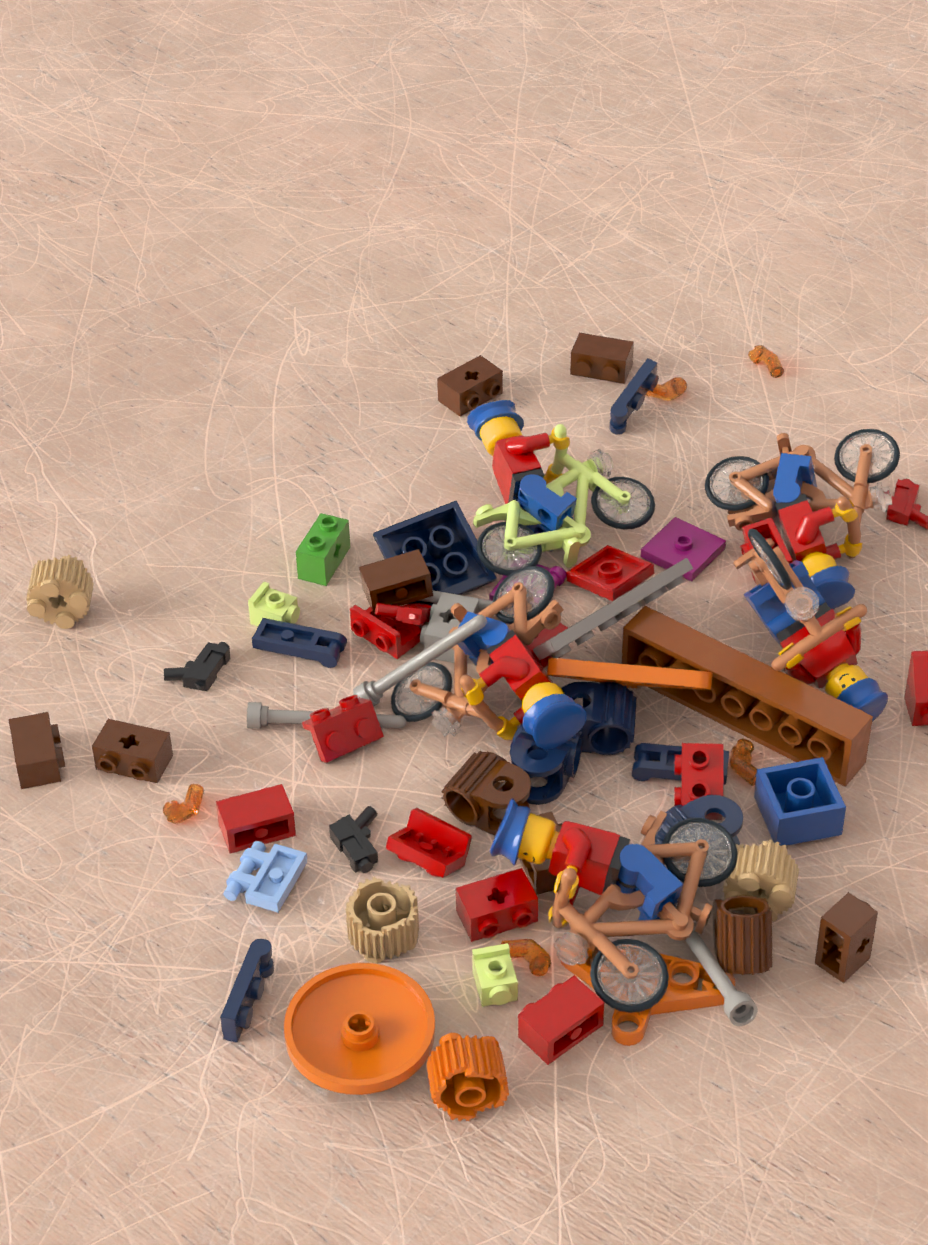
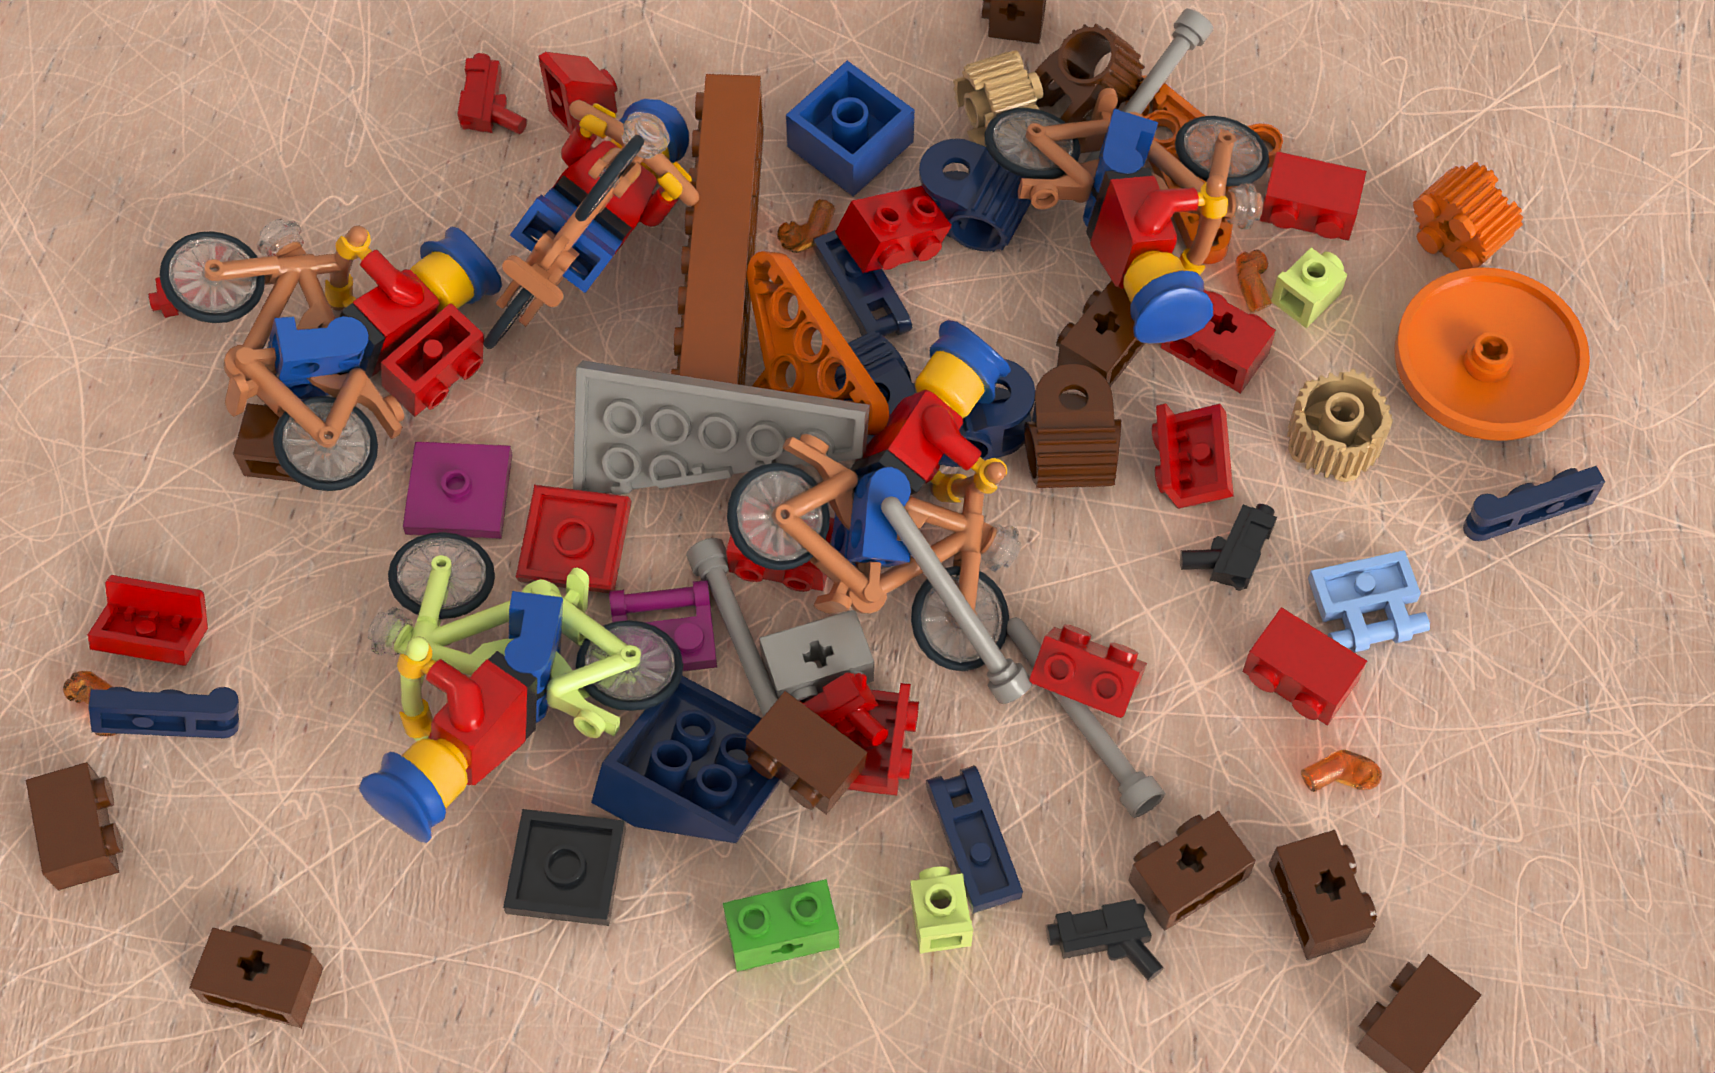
camera: 125 degrees left, 20 degrees up
(198, 709) = (1177, 893): none -> reddish brown brick
(426, 492) = (565, 867): none -> black plate
(691, 413) = (150, 621): none -> red bracket

